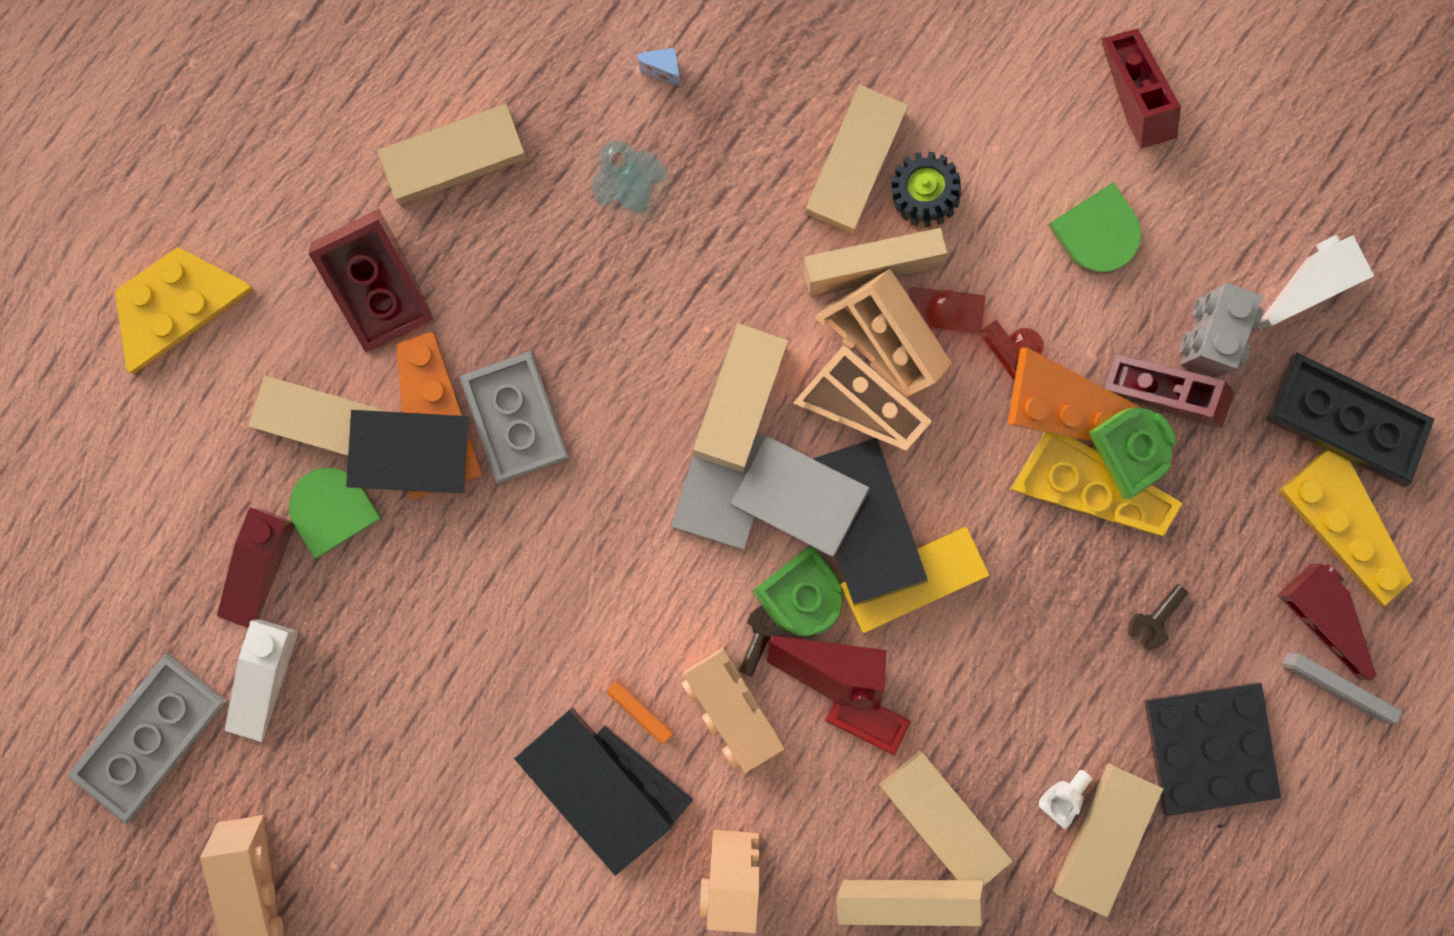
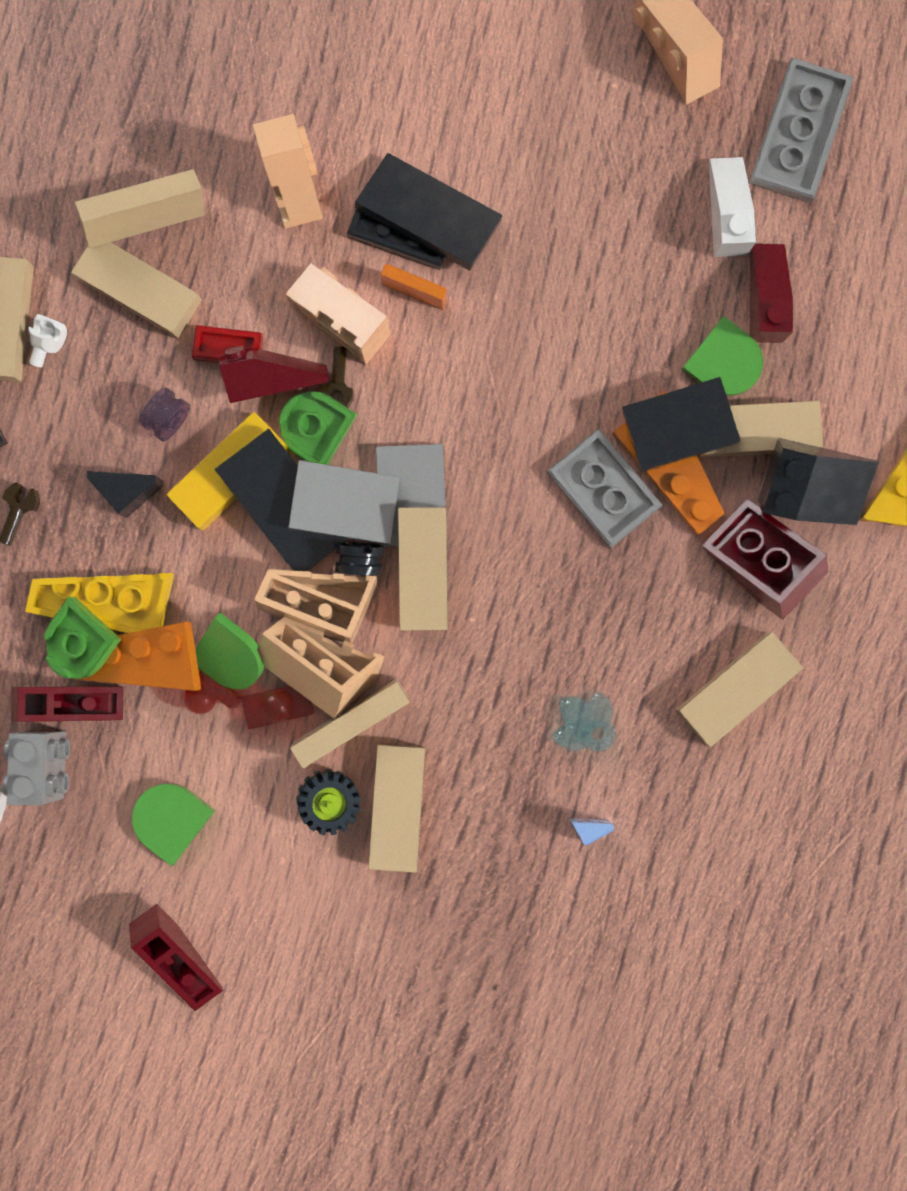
camera: 170 degrees right, 0 degrees up
(289, 338) = (816, 484): none -> black slope
(804, 431) = (359, 558): none -> black wheel
(962, 664) = (164, 414): none -> clear purple wheel
(978, 377) = (229, 655): none -> bright green tile
(1034, 597) = (124, 490): none -> black slope

